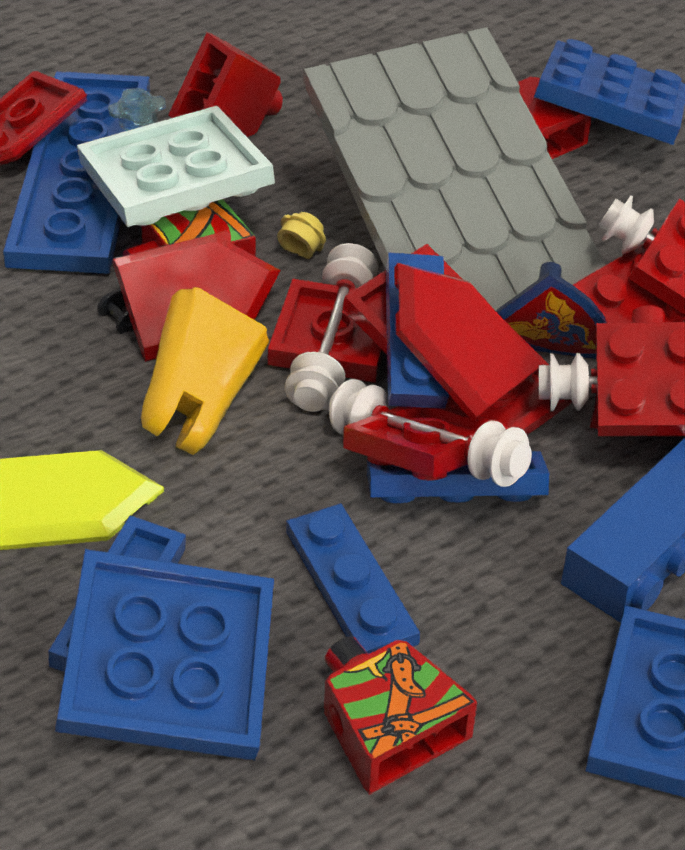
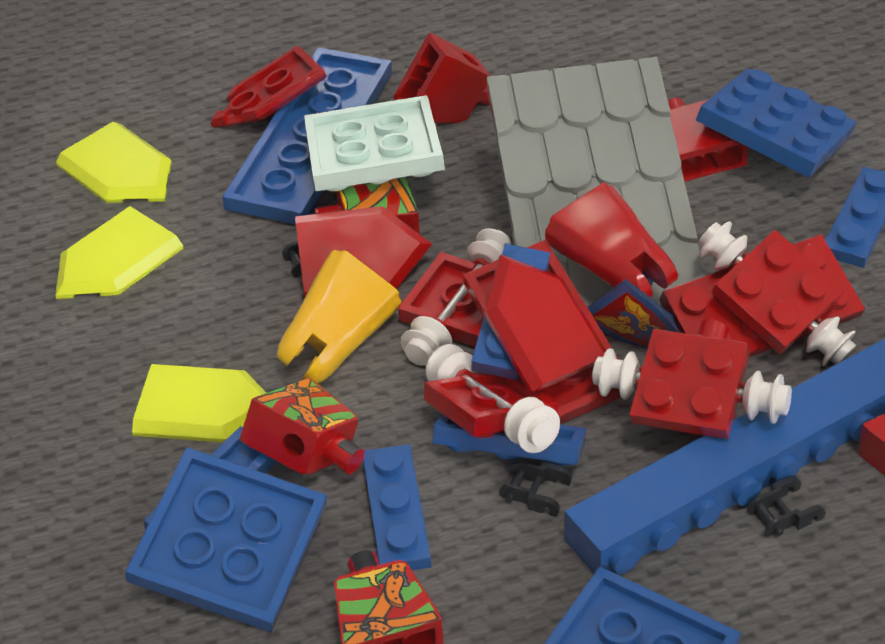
camera: 20 degrees right, 0 degrees up
(136, 108) = (366, 89): clear light blue plate -> none
(215, 506) = (303, 429): none -> red torso
(301, 234) = (465, 214): light yellow plate -> none
(503, 513) = (538, 475): none -> black piece
(506, 235) = (609, 241): none -> red piece

